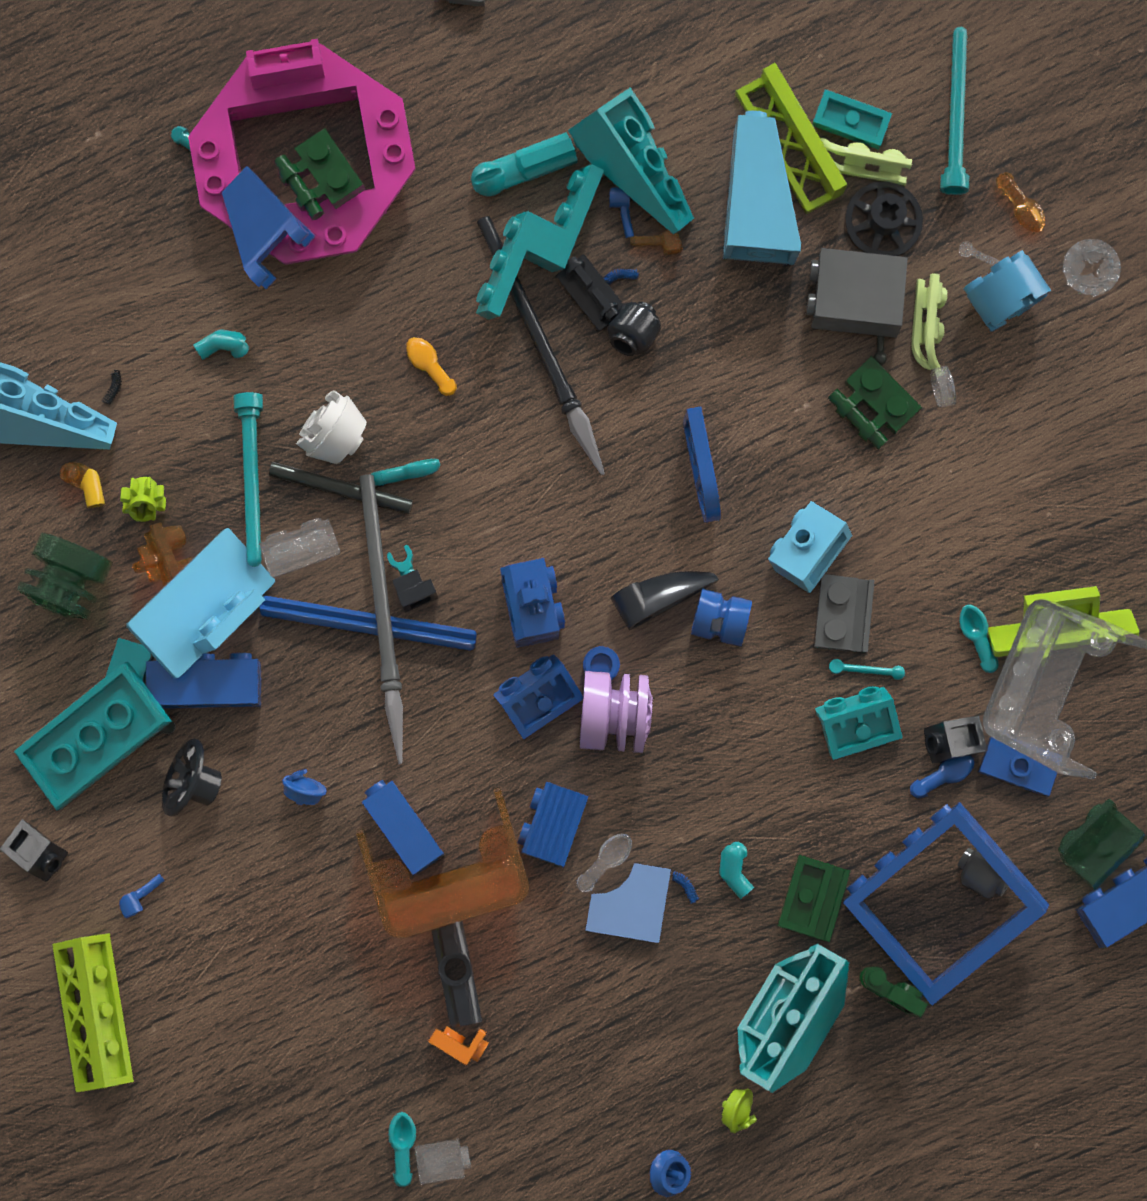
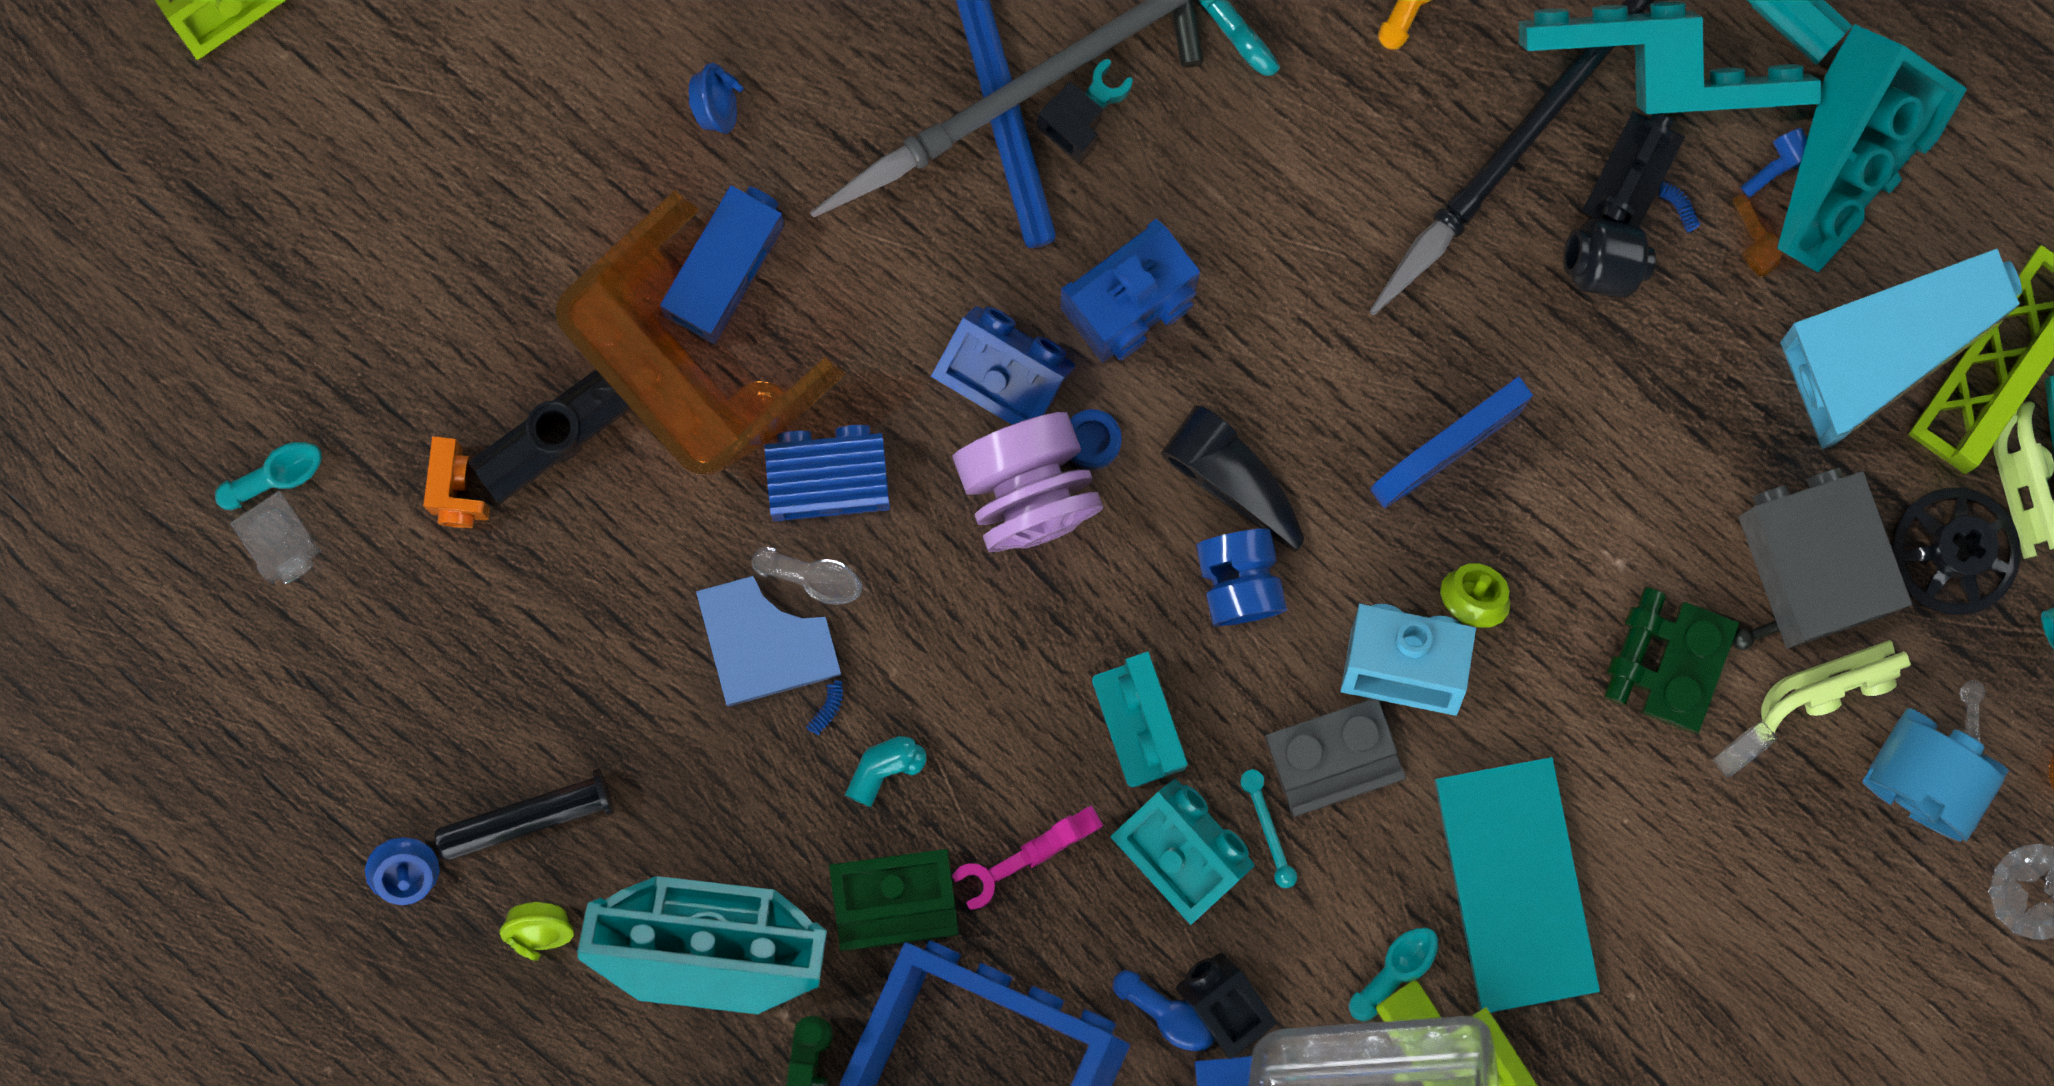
camera: 70 degrees right, 0 degrees up
(670, 1089) = (524, 817): none -> black axle
(776, 712) = (1139, 721): none -> teal bracket
(790, 492) = (1476, 595): none -> lime hat
(821, 806) = (1032, 853): none -> dark pink piece
(960, 547) = (1516, 885): none -> teal tile

